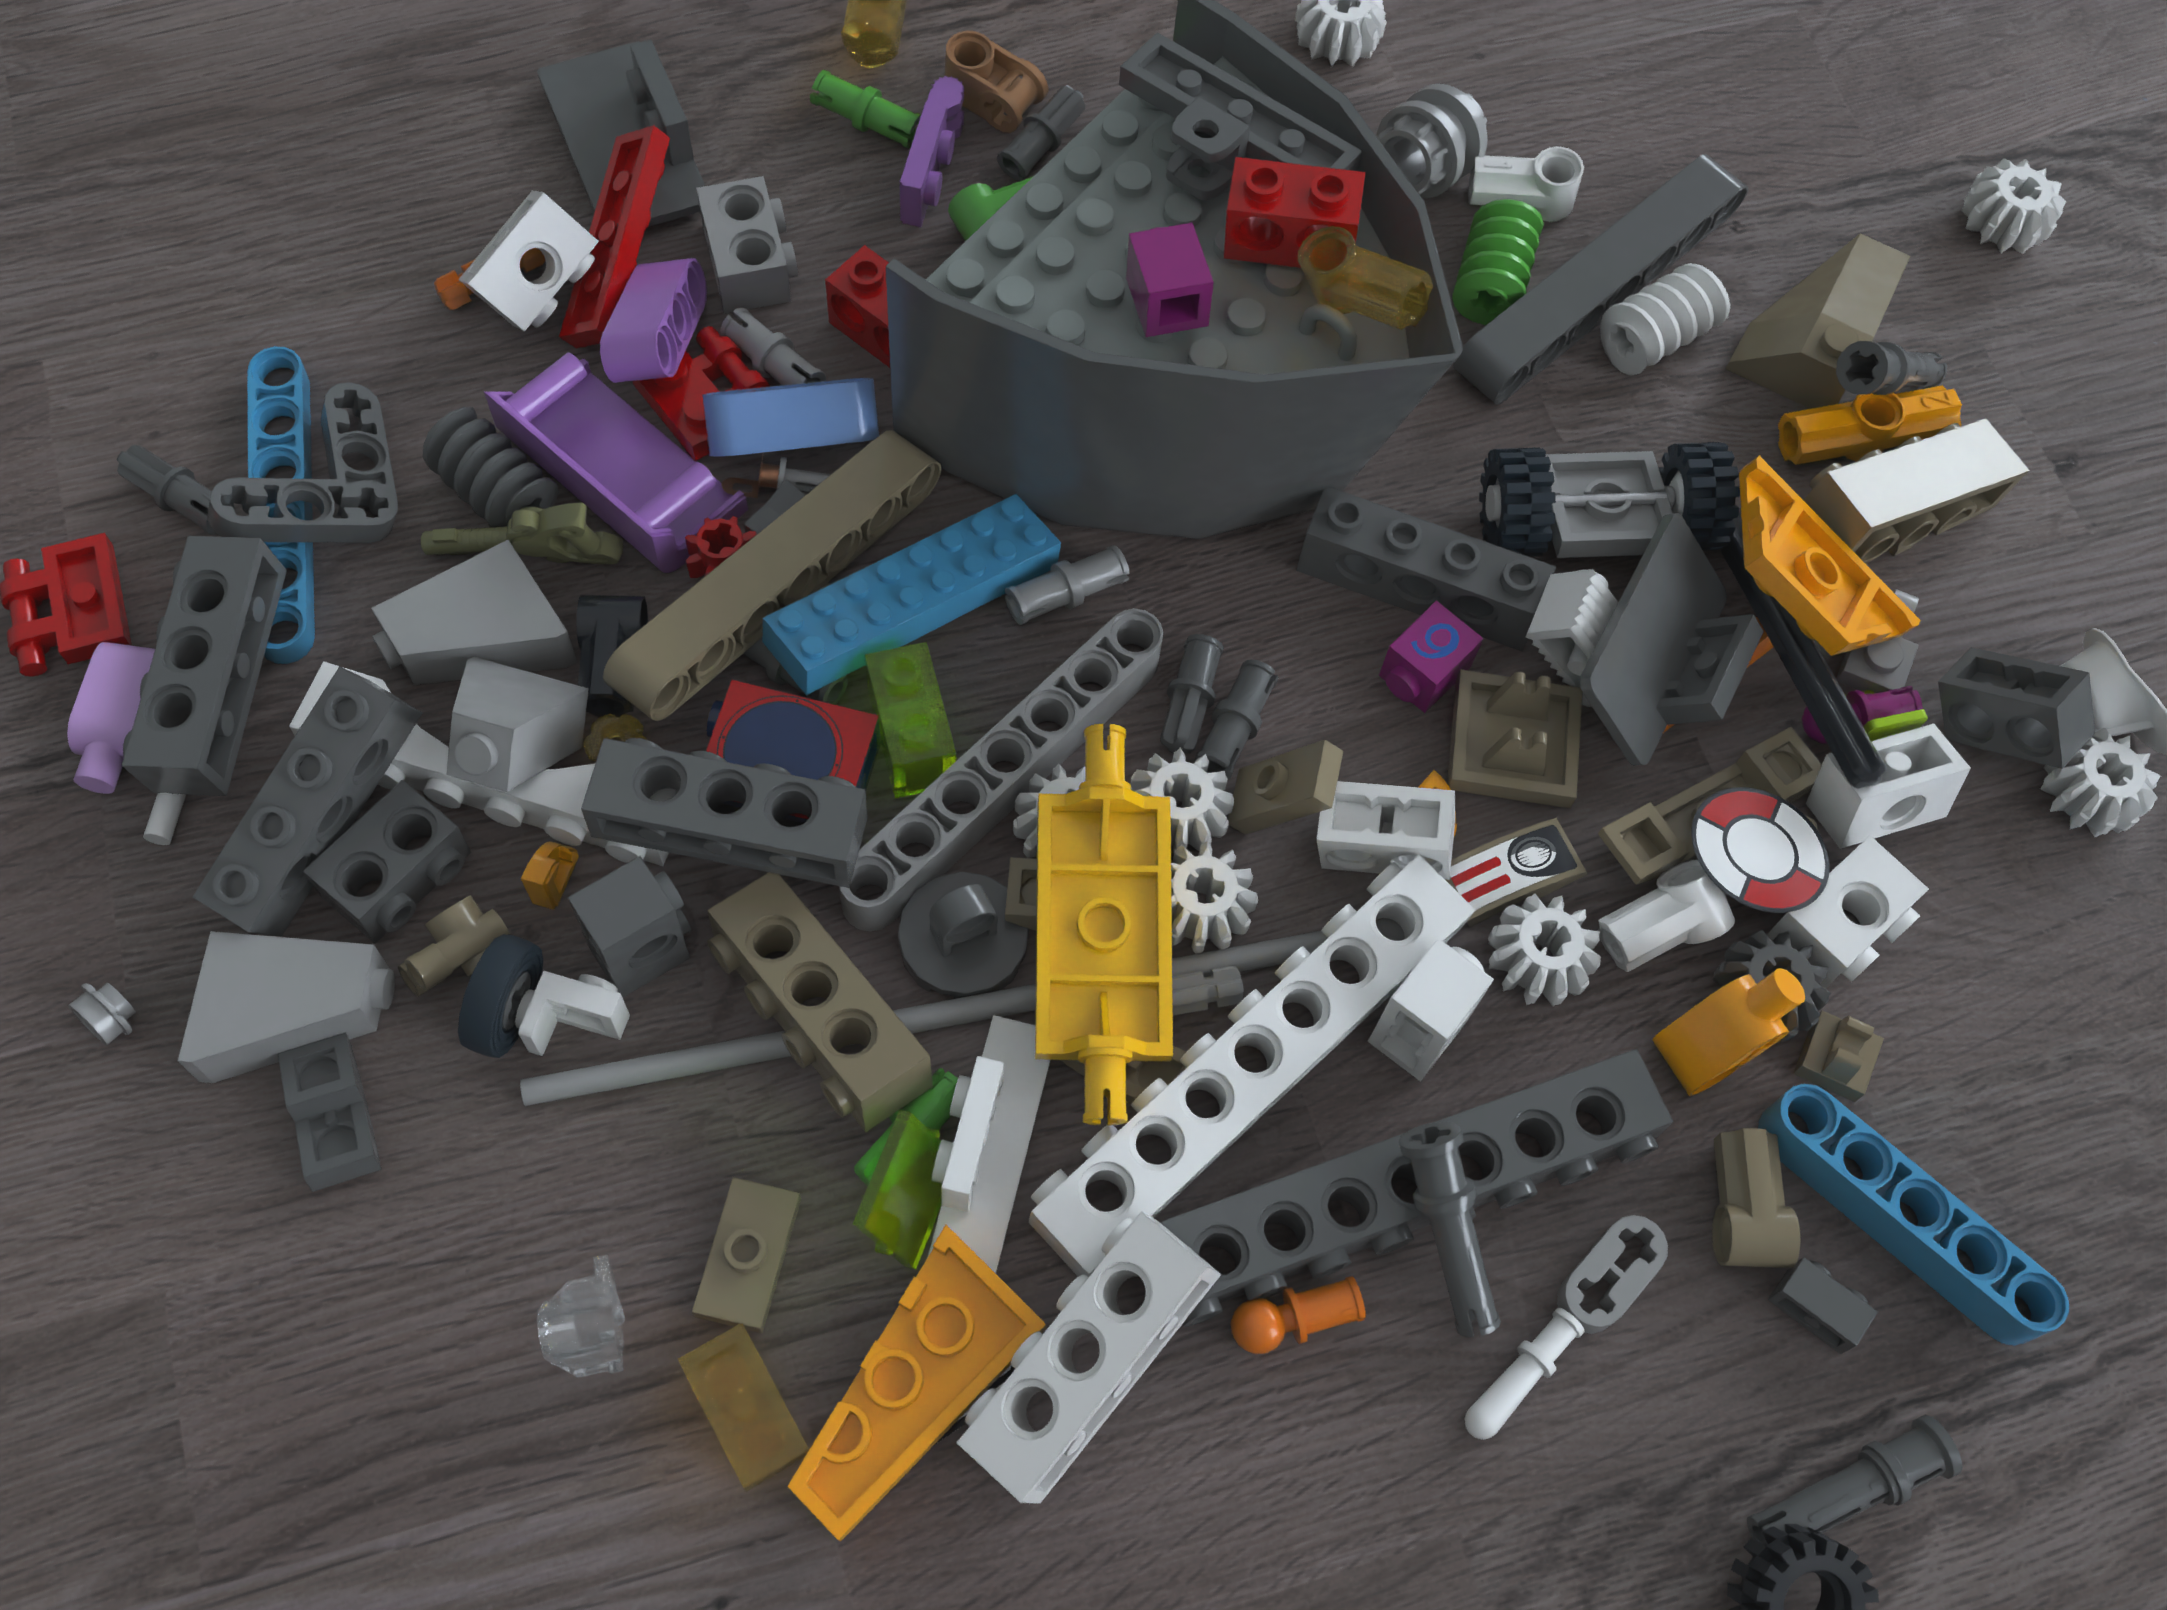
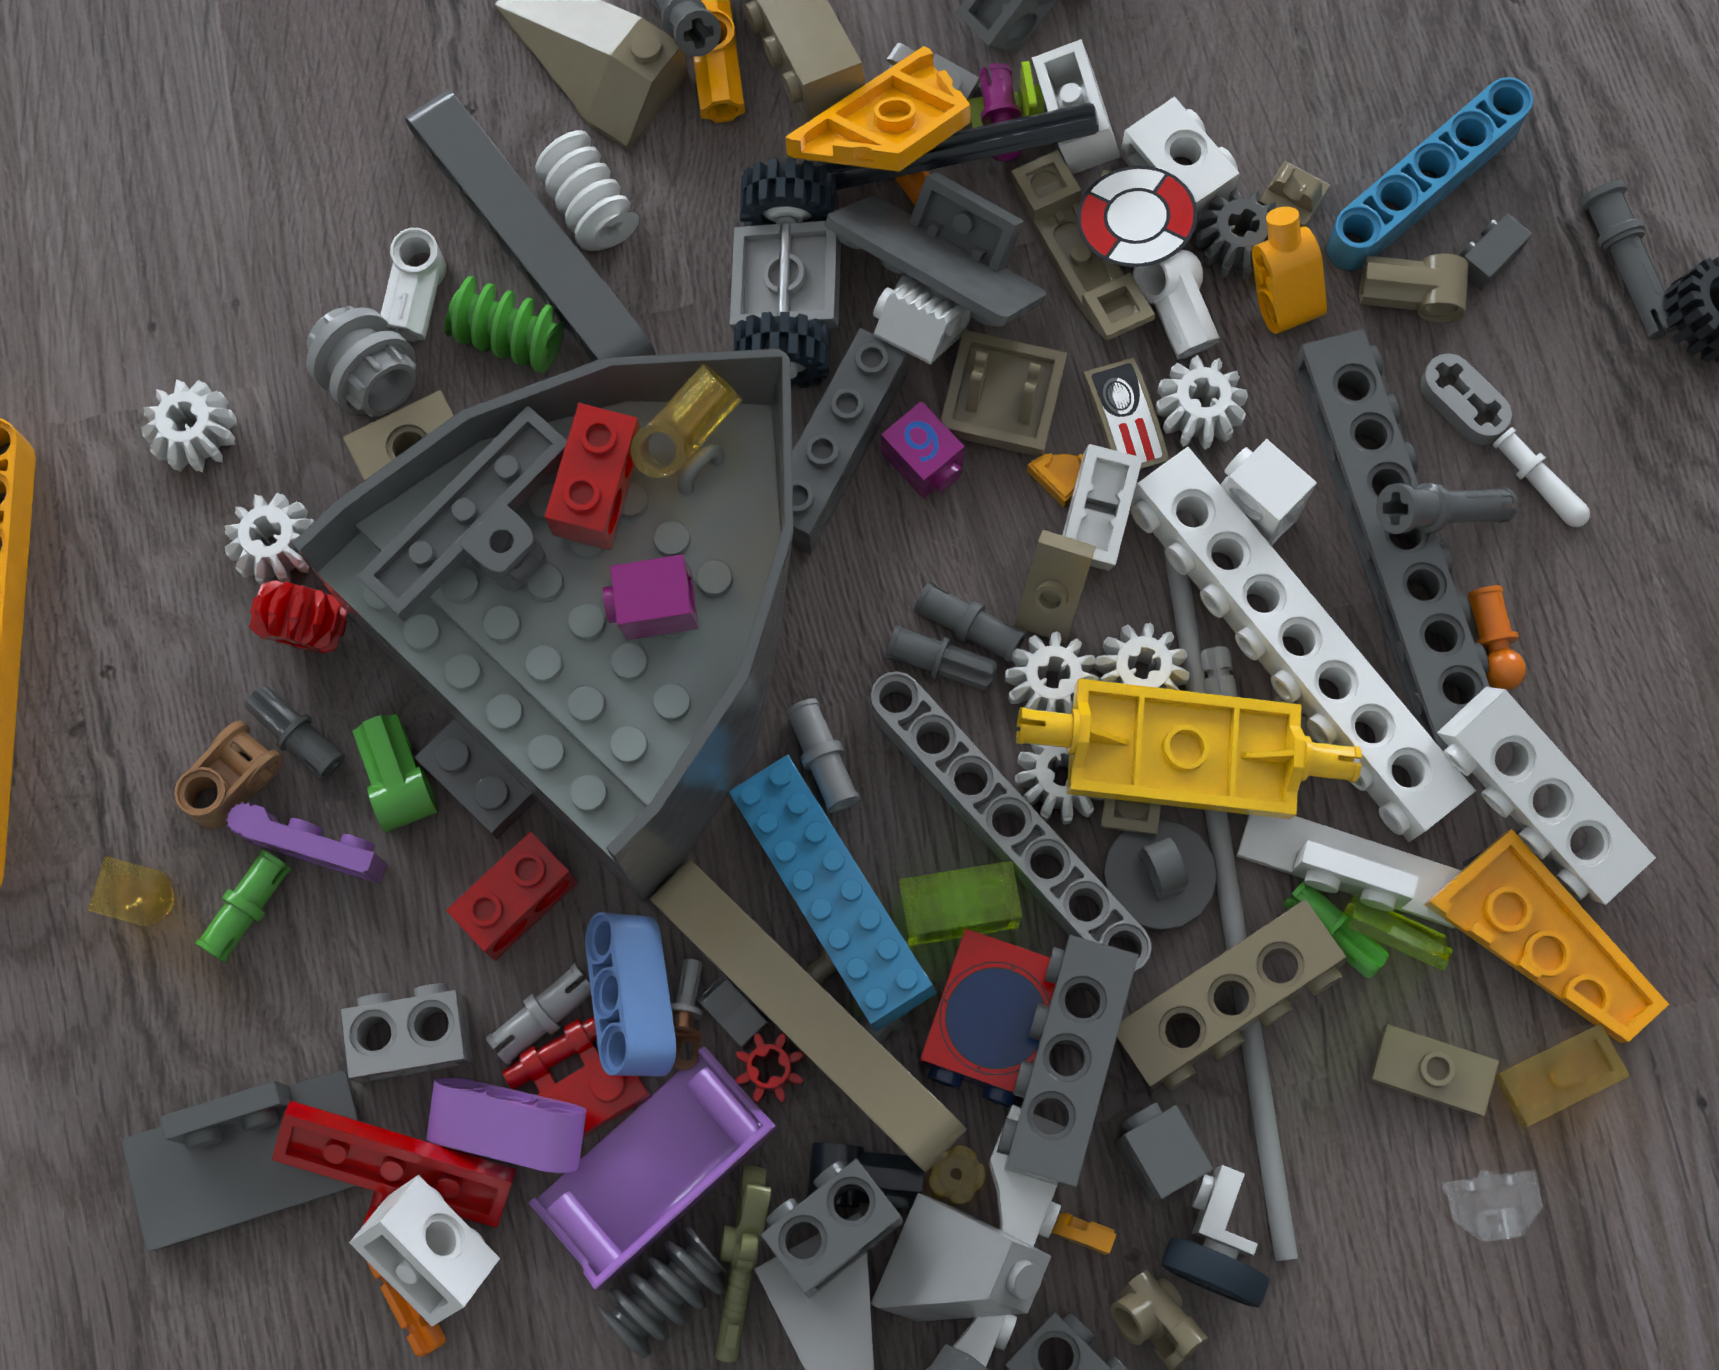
camera: 75 degrees left, 10 degrees up
(533, 596) = (841, 1239): none -> dark grey brick

